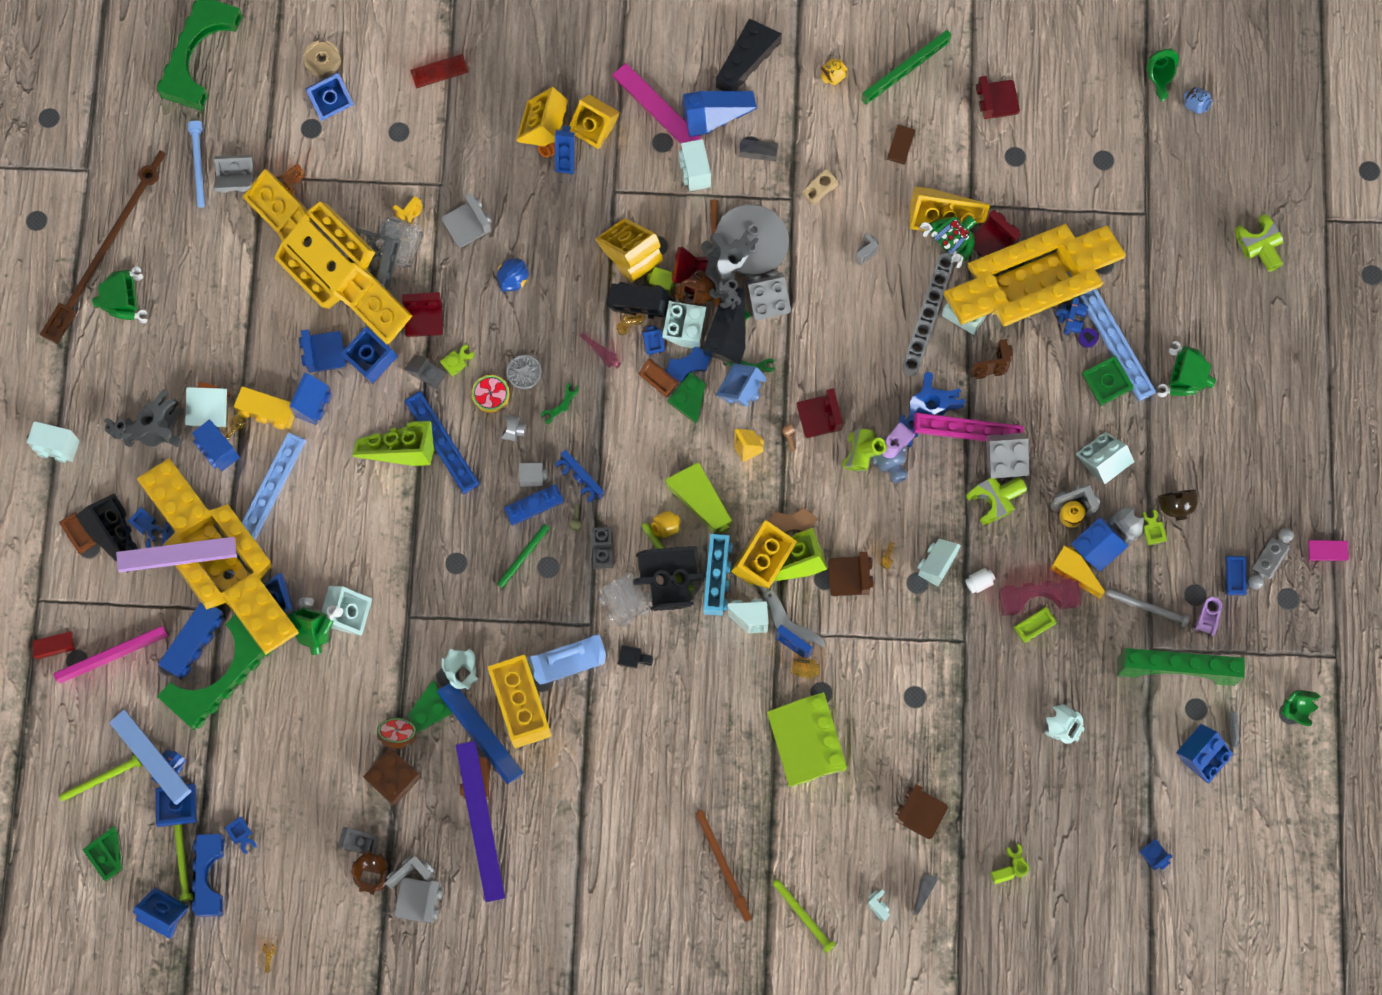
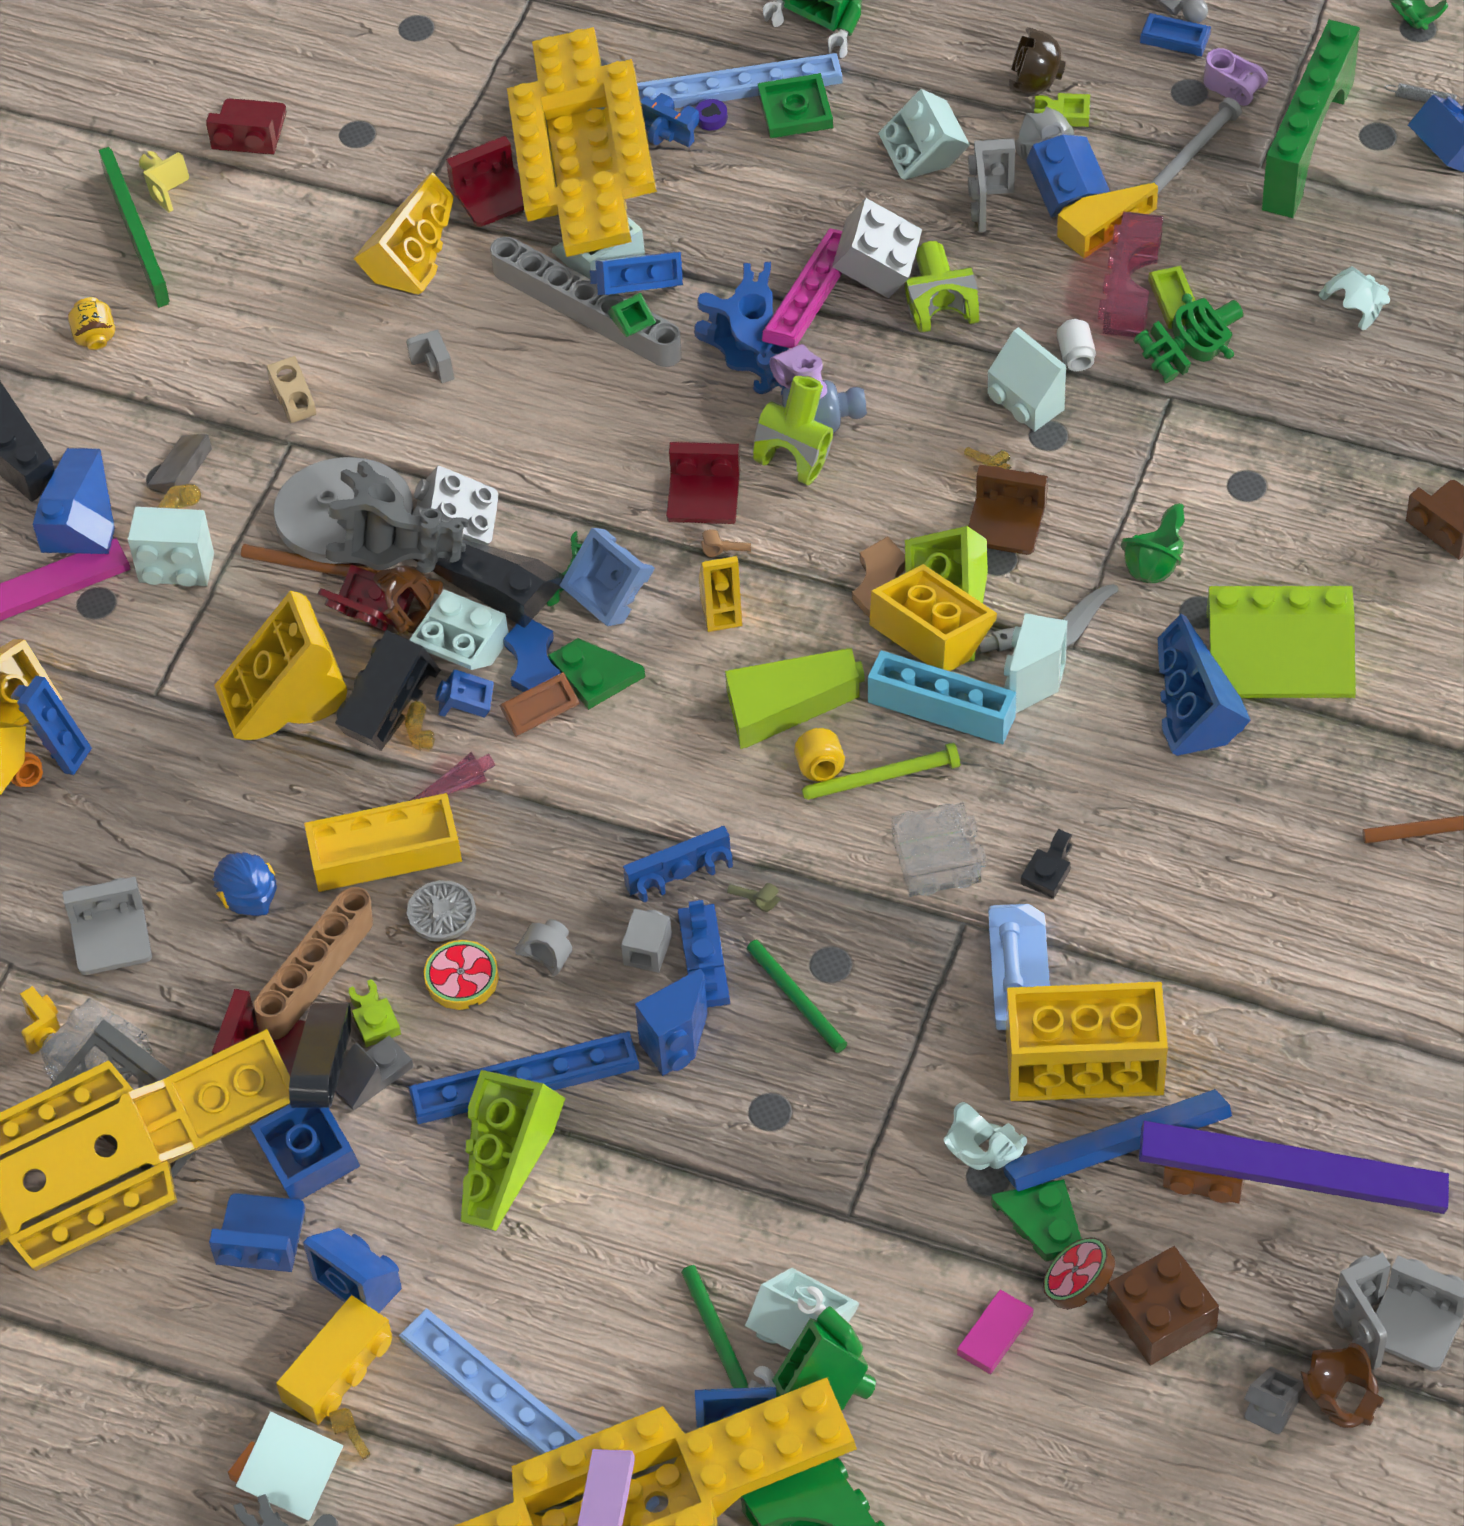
camera: 70 degrees left, 20 degrees down
(214, 446) = (381, 1459): blue brick -> none
(328, 574) = (714, 1327): none -> green bar
(362, 702) = (995, 1331): none -> dark pink tile
(412, 344) = (320, 1055): none -> black beam
(466, 316) = (314, 962): none -> medium nougat beam
(480, 503) = (673, 1022): none -> blue slope
(555, 330) = (383, 842): none -> yellow slope
(563, 407) = (533, 864): green piece -> none
(602, 548) = (827, 869): flat silver slope -> none
(662, 278) = (355, 651): lime brick -> none
(667, 563) = (922, 757): black piece -> none
(734, 157) = (181, 496): none -> clear yellow arm
(756, 708) = (1198, 696): none -> blue wedge
(793, 642) = (1104, 611): blue tile -> none
(805, 667) = (1151, 615): clear yellow brick -> none
(847, 659) = (1156, 554): none -> green piece
(901, 144) = (265, 270): reddish brown tile -> none
(916, 341) = (631, 315): none -> green slope
(947, 68) = (163, 176): none -> light yellow bracket
(948, 335) = (637, 273): none -> blue plate
(952, 236) = (467, 229): torso -> none
(998, 366) = (705, 221): reddish brown bracket -> none
(1020, 652) = (1203, 339): none -> green torso
(1076, 517) = (1006, 197): yellow head -> none

